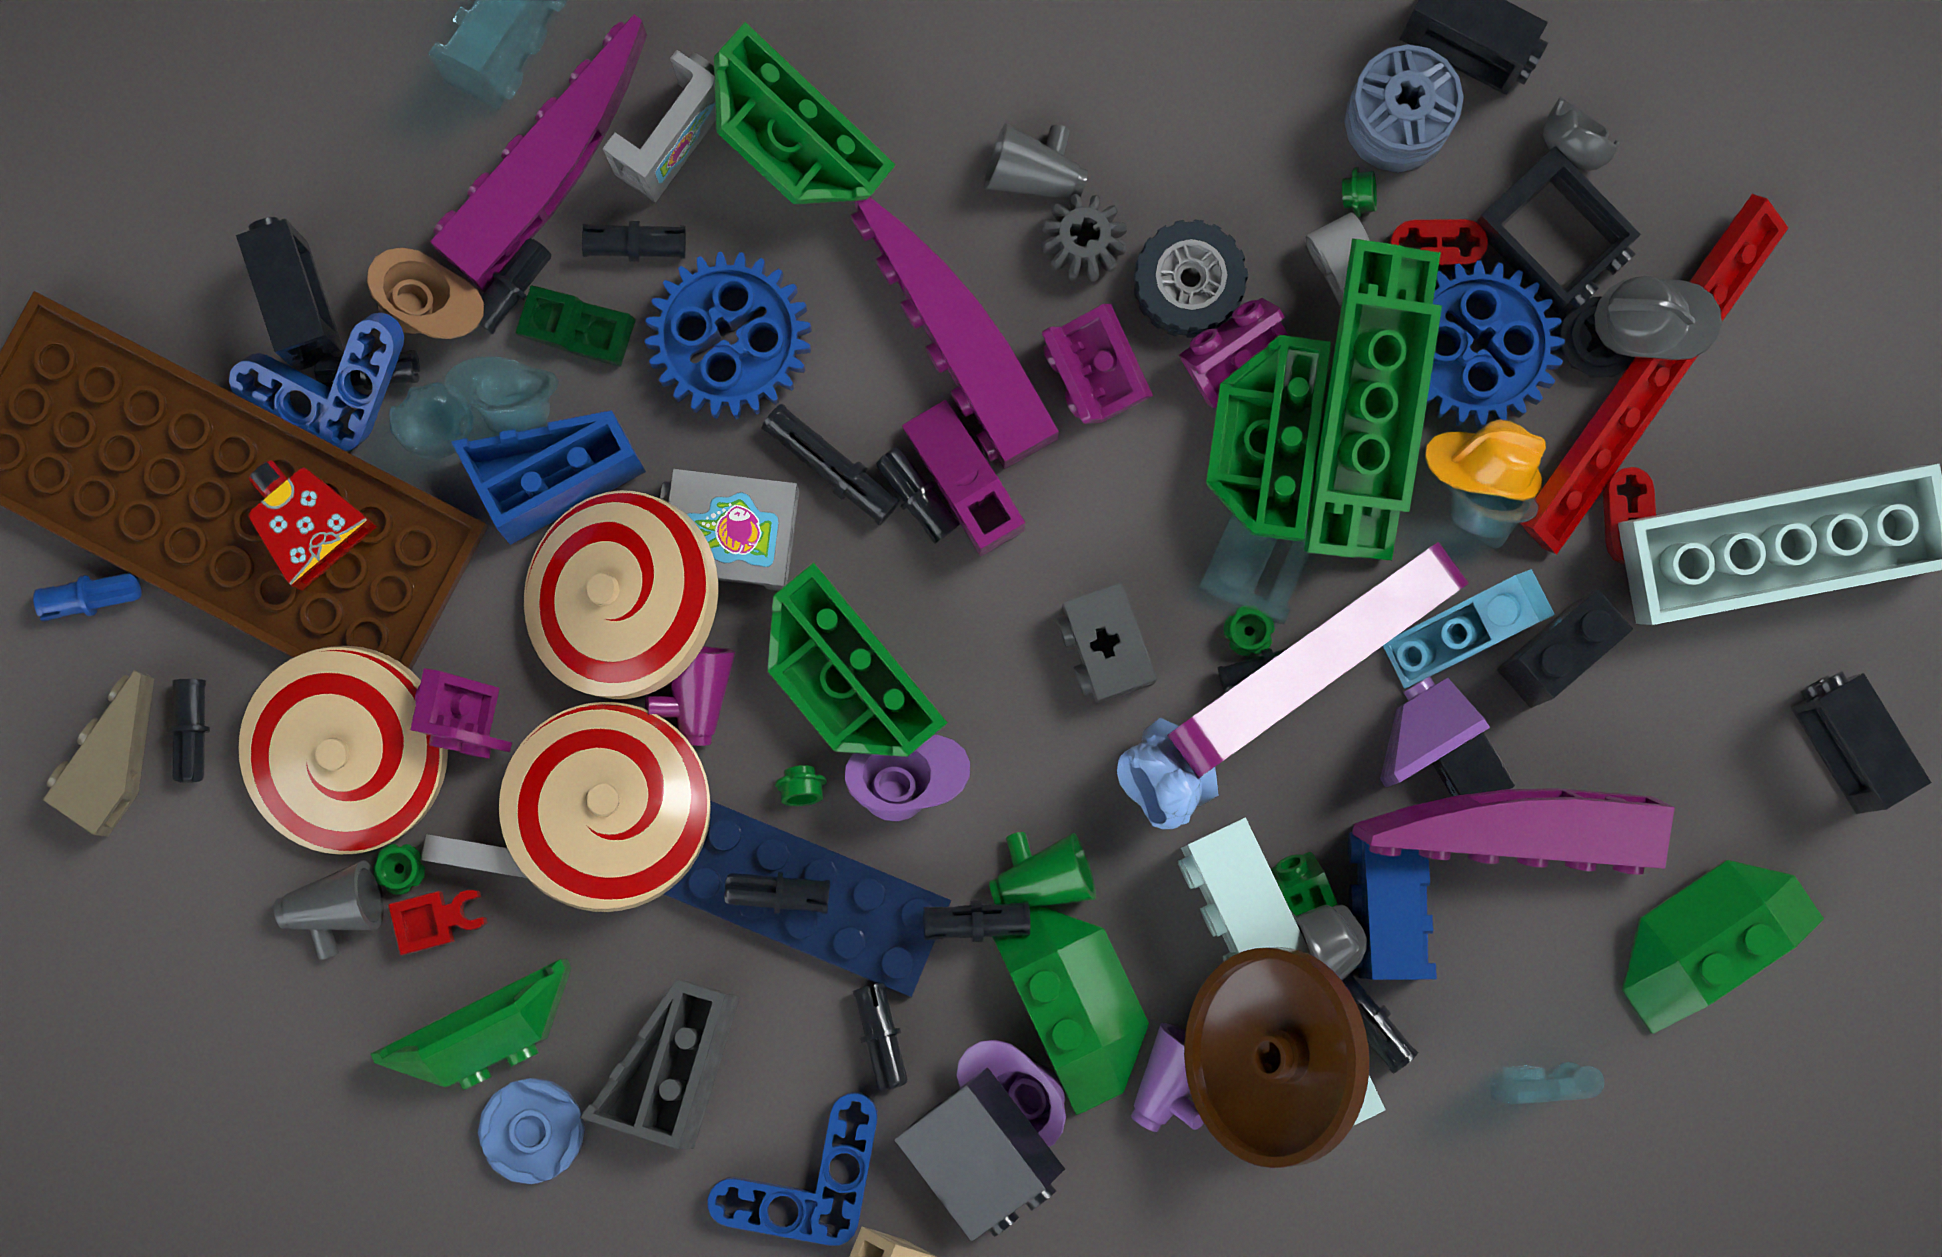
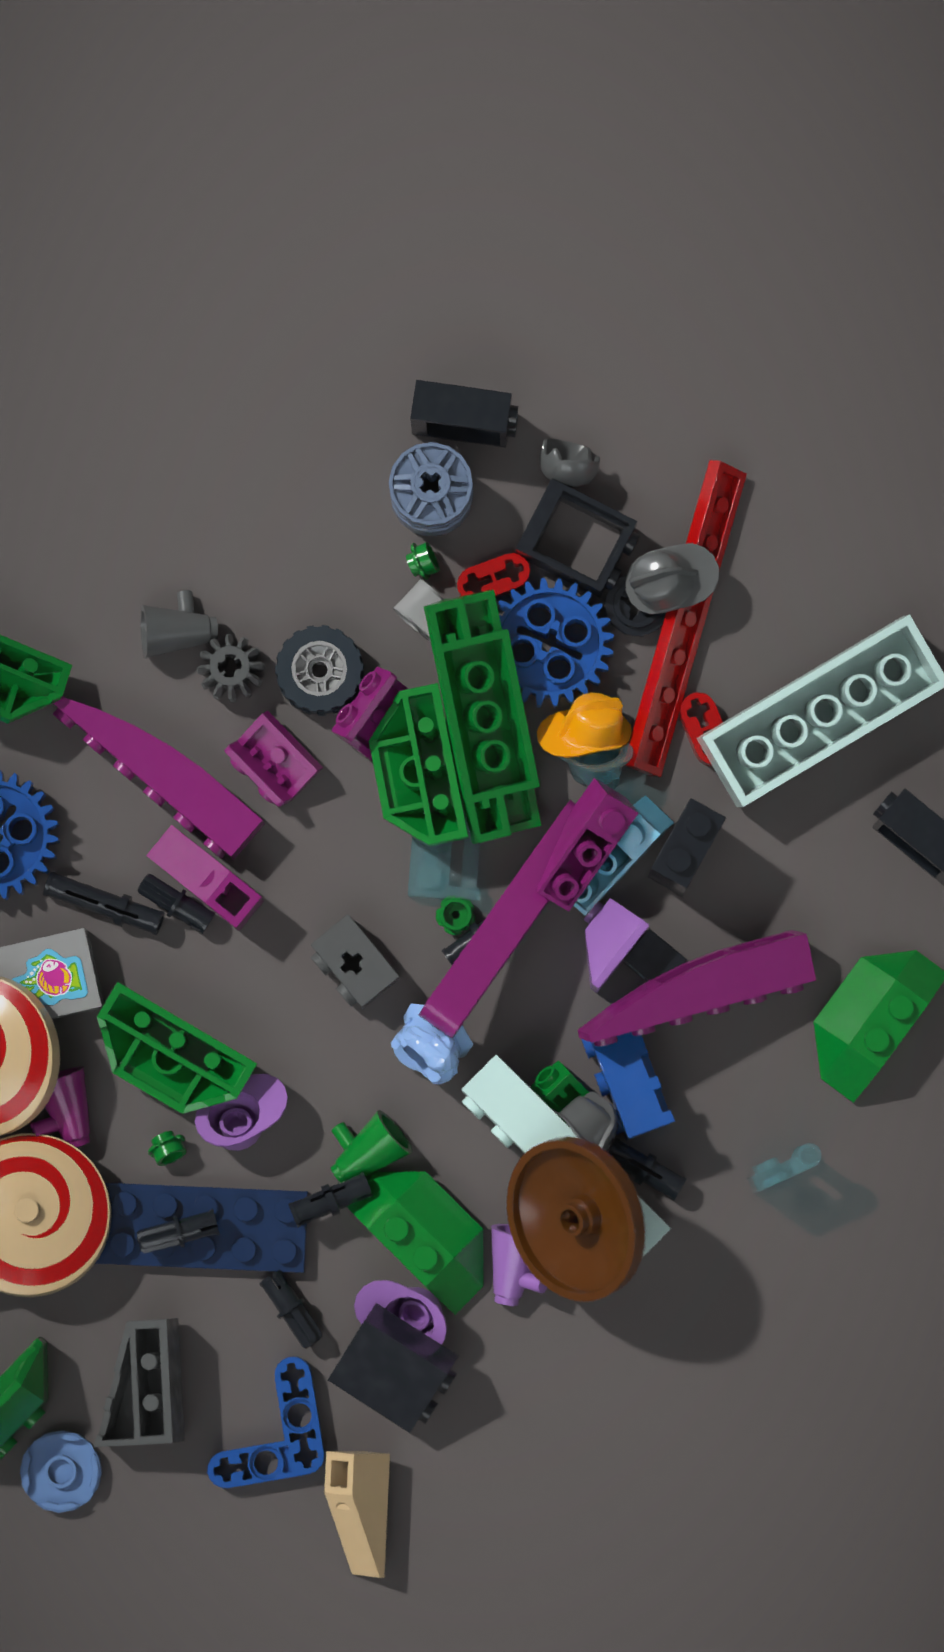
camera: 15 degrees left, 0 degrees up
(1444, 599) = (585, 843): none -> magenta slope

